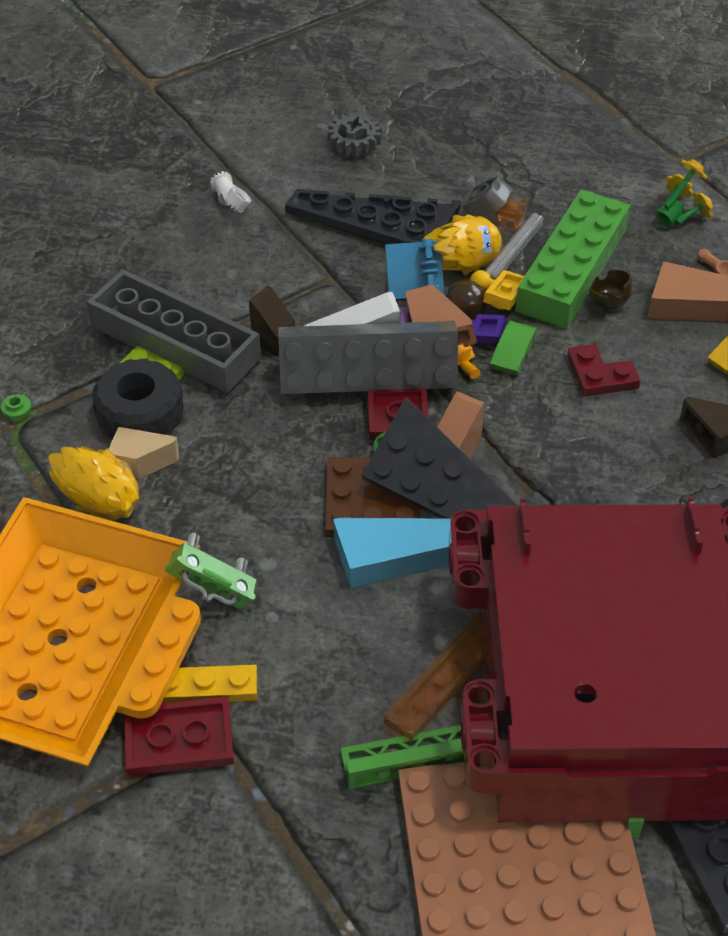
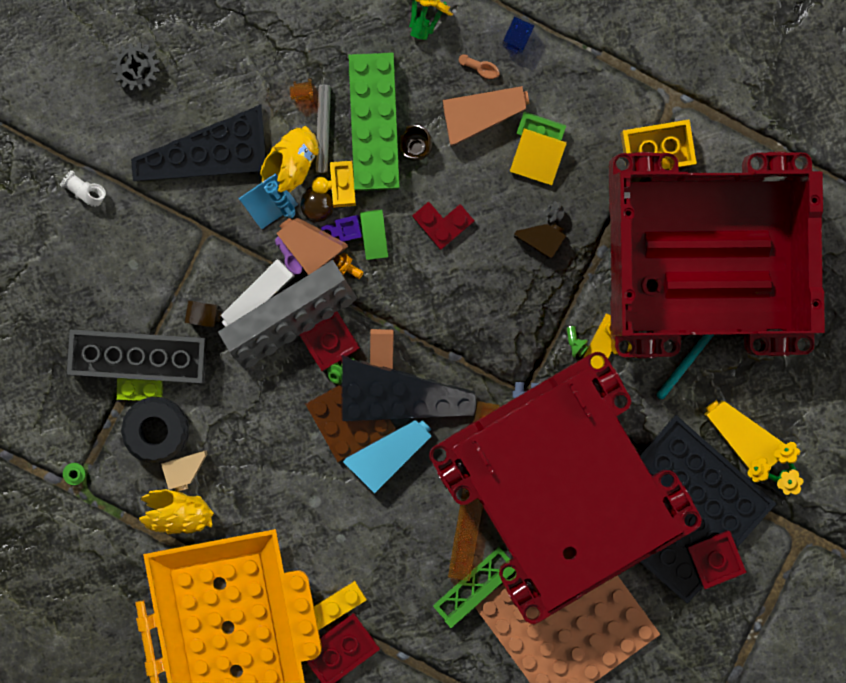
camera: 30 degrees left, 40 degrees up
(211, 575) = (296, 546): bright green piece -> none
(487, 197) = (281, 96): dark grey piece -> none

